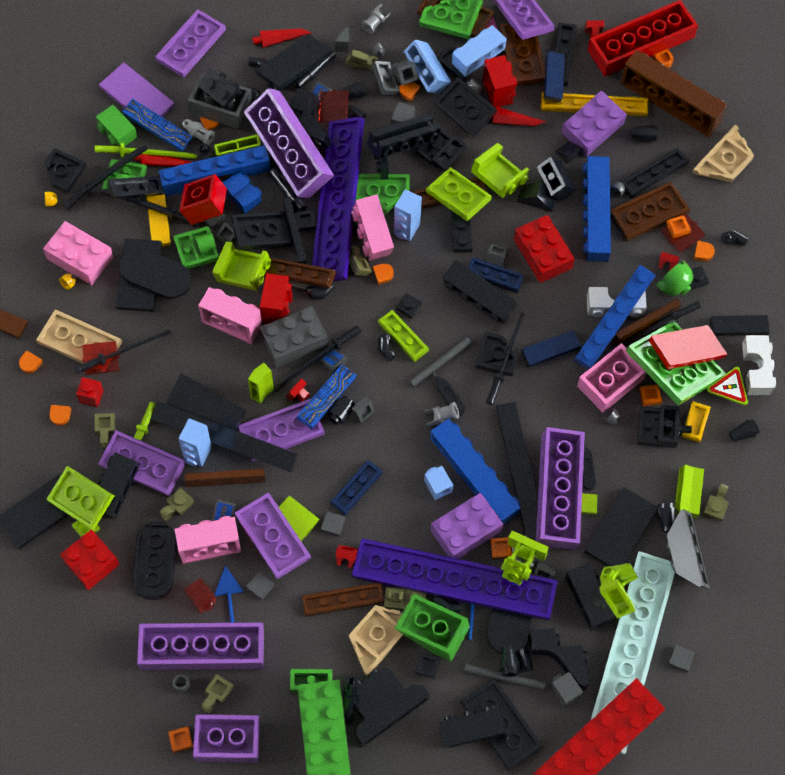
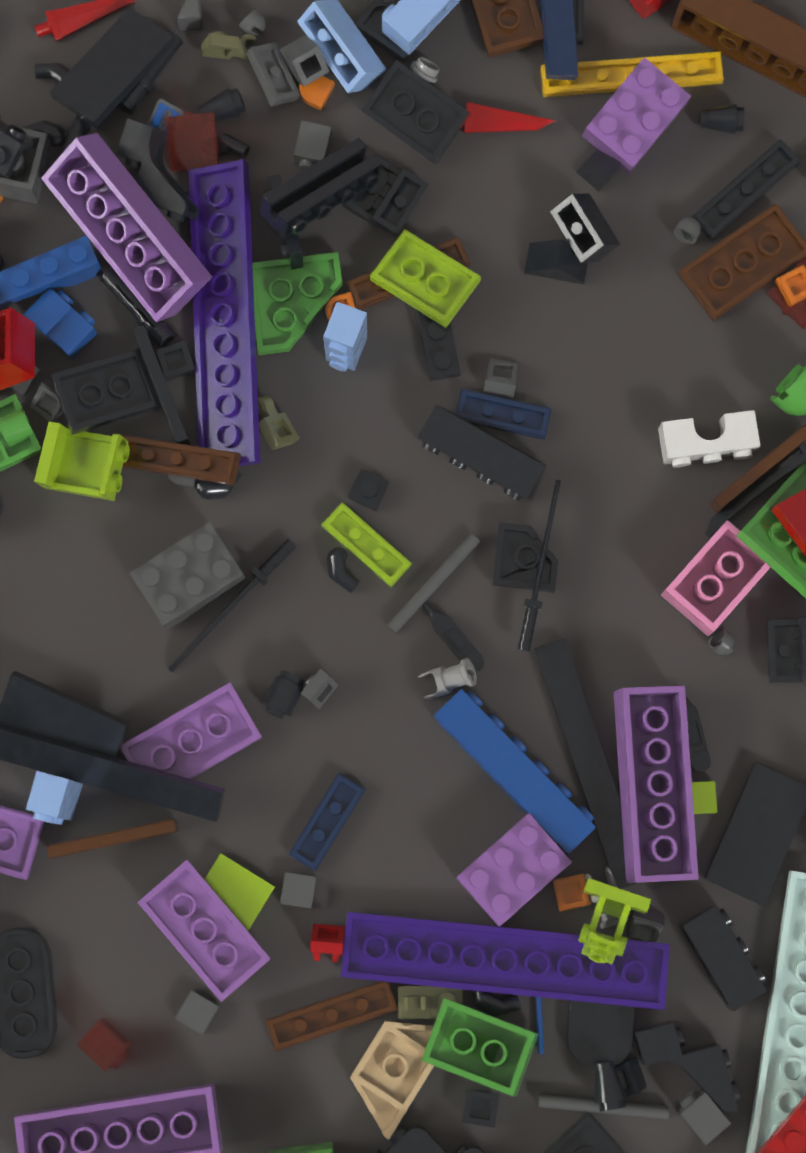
camera: 10 degrees left, 15 degrees up
(177, 503) = (44, 890): olive plate -> none
(207, 539) = (100, 953): bright pink brick -> none
(223, 509) = (120, 898): slope -> none
(228, 586) = (144, 1018): blue piece -> none
(230, 315) = (76, 554): bright pink brick -> none
(237, 145) = (39, 236): lime piece -> none
(260, 383) = (144, 673): lime piece -> none
(275, 298) = (147, 517): red brick -> none
(298, 391) = (207, 670): red tile -> none
(326, 397) = (256, 675): blue tile -> none
(334, 360) = (259, 605): slope -> none
(372, 228) = (290, 367): bright pink brick -> none
(383, 273) = (318, 437): orange tile -> none
(438, 482) = (457, 797): light blue brick -> none
(498, 171) = (488, 227): lime panel -> none
(499, 81) = (467, 58): red brick -> none
(543, 249) = (579, 359): red brick -> none
(551, 348) = (611, 534): dark blue tile -> none
(597, 209) = (659, 271): blue brick -> none
(612, 589) = (758, 954): lime tile -> none
(614, 317) = (711, 474): blue brick -> none
(650, 395) = (780, 595): orange tile -> none
(672, 259) = (787, 346): red tile -> none

